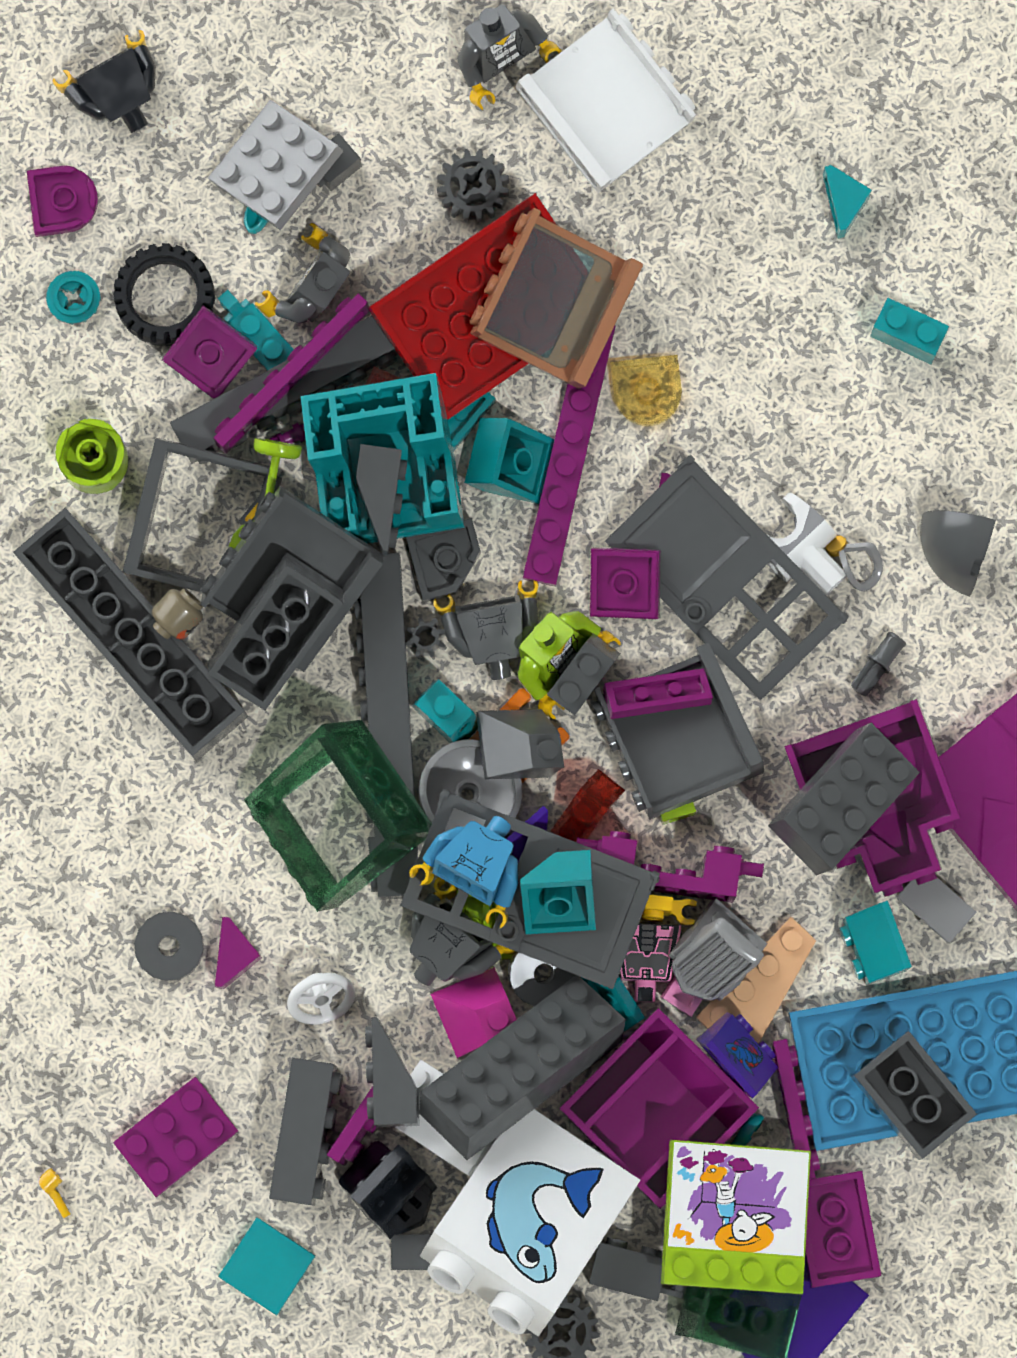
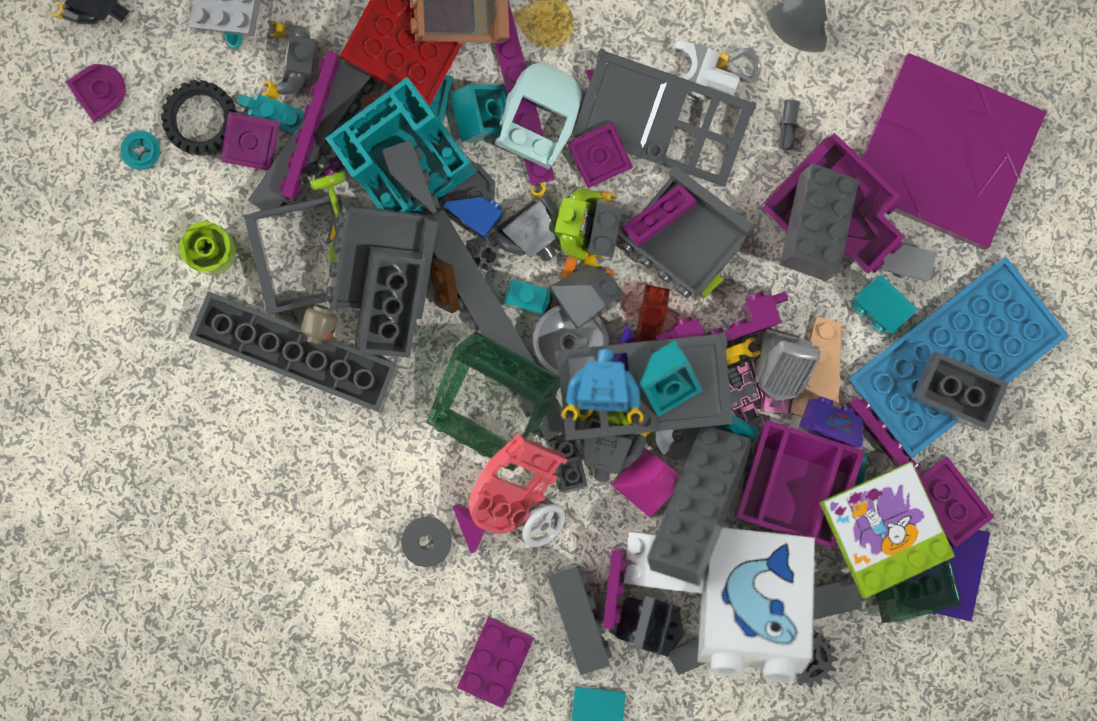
camera: 30 degrees left, 5 degrees up
(283, 945) = (502, 505): none -> coral slope
(352, 645) = (444, 285): none -> reddish brown plate
(391, 942) = (571, 473): none -> dark grey slope
(394, 1091) = (626, 563): dark grey slope -> none
(436, 579) = (476, 214): none -> blue slope
(606, 475) = (547, 88): none -> light aqua slope

